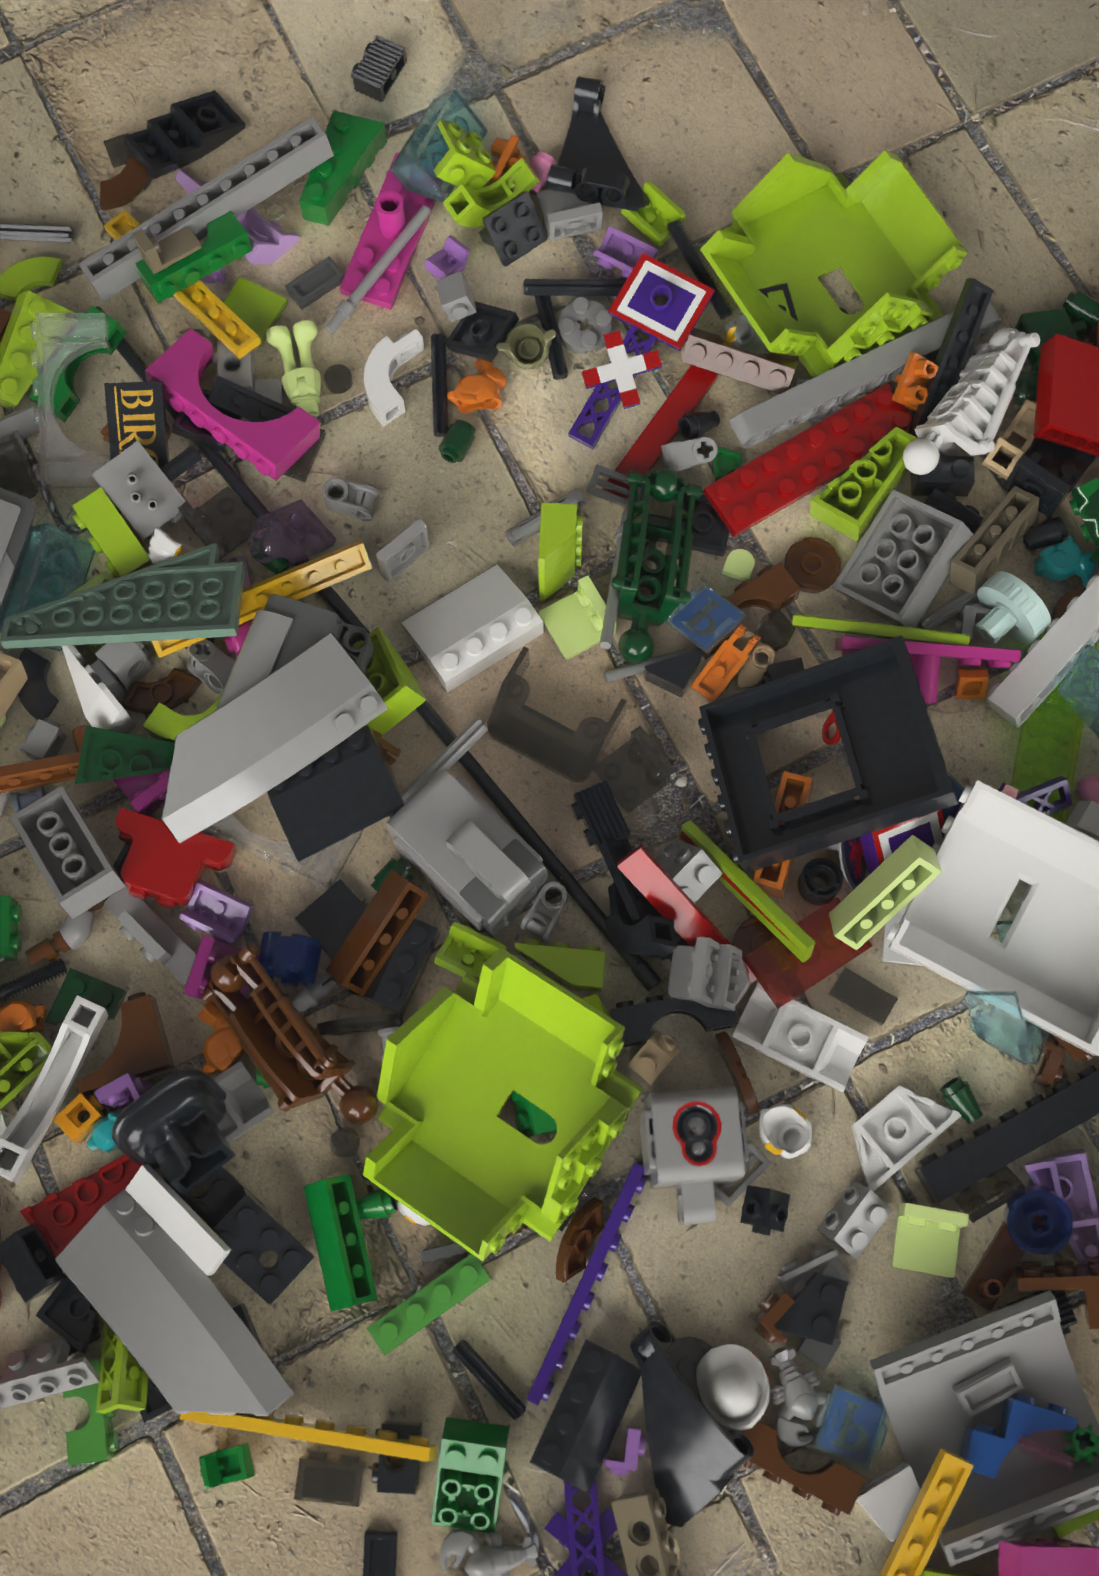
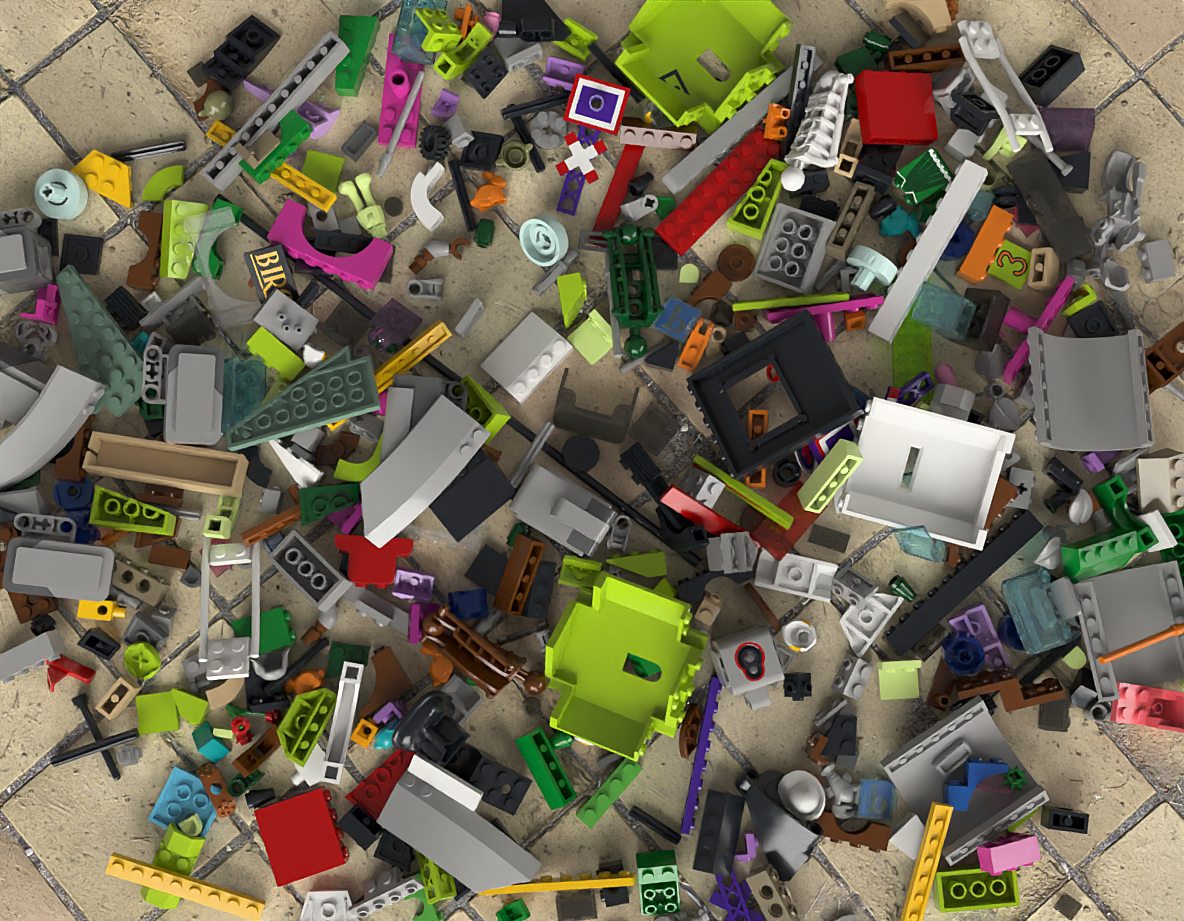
camera: 15 degrees left, 10 degrees up
(132, 191) = (218, 105): none -> olive hair
(386, 447) = (436, 249): none -> reddish brown piece
(419, 303) = (435, 142): none -> black tyre
(516, 780) = (580, 453): none -> black tile
(553, 466) = (551, 235): none -> light aqua piece
(807, 643) = (745, 320): none -> reddish brown bracket
(885, 1077) = (853, 587): none -> light grey bracket

